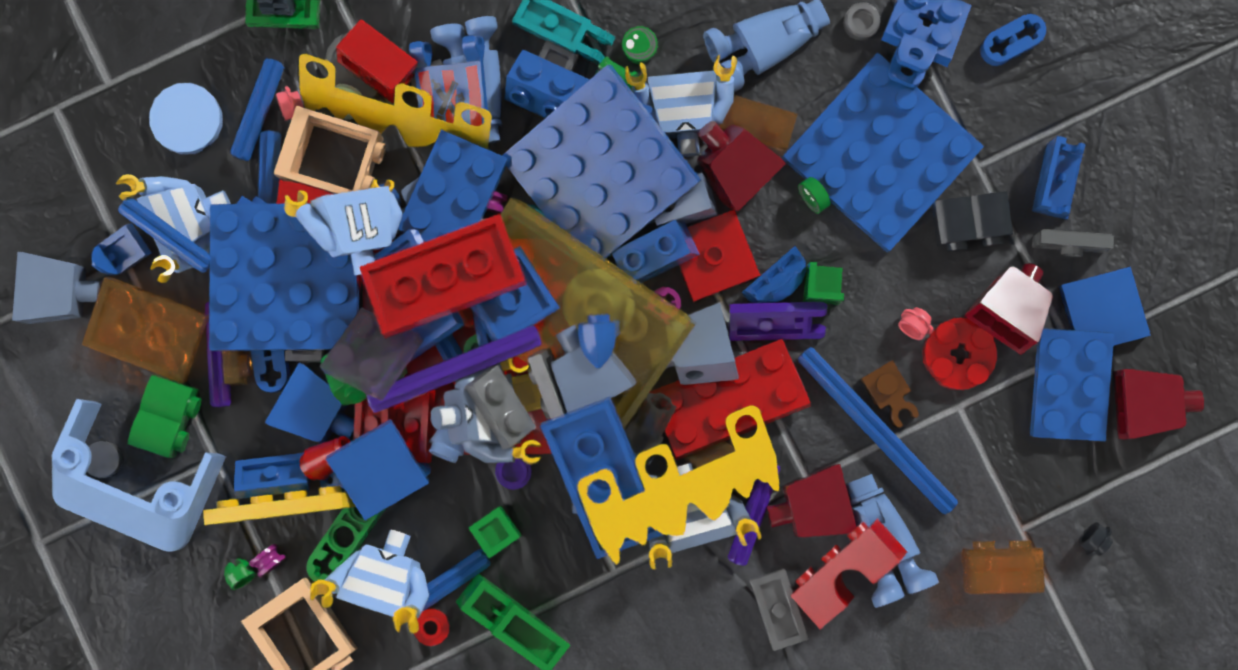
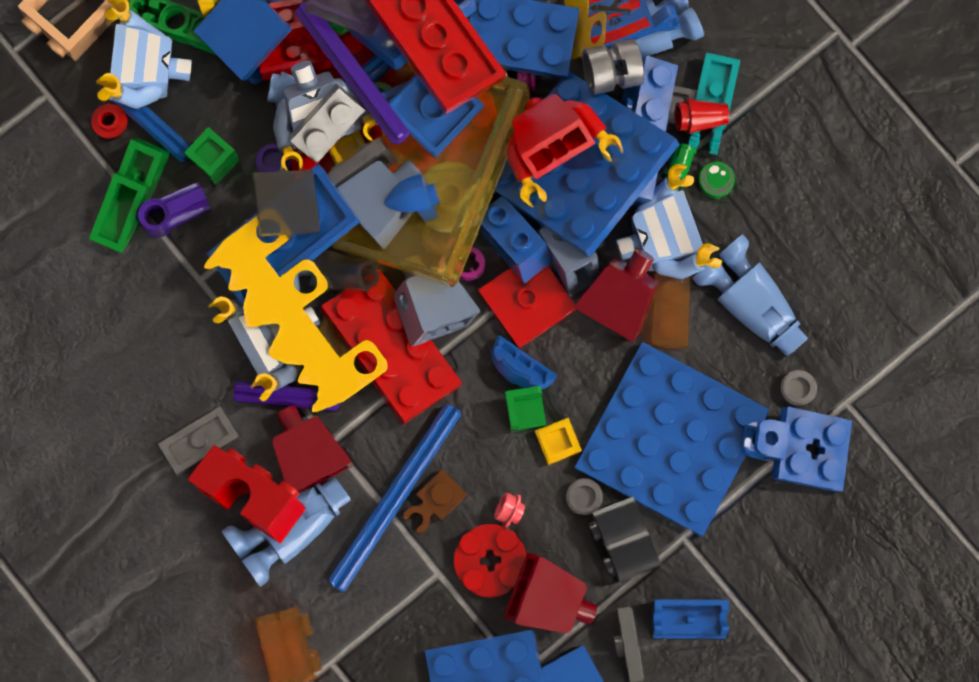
camera: 75 degrees right, 5 degrees down
(515, 107) = (600, 67): none -> flat silver wheel
(539, 577) = (178, 209): none -> dark purple piece
(572, 185) = (549, 136): none -> red torso
(576, 466) = (286, 203): none -> clear smoke piece
(577, 42) = (699, 115): none -> red cone
(776, 321) = (477, 372): dark purple hinge -> none
(814, 194) = (611, 380): green tile -> none
(859, 261) = (558, 441): none -> yellow tile
(918, 249) = (584, 497): none -> flat silver tile
(1009, 33) = (813, 548): blue beam -> none

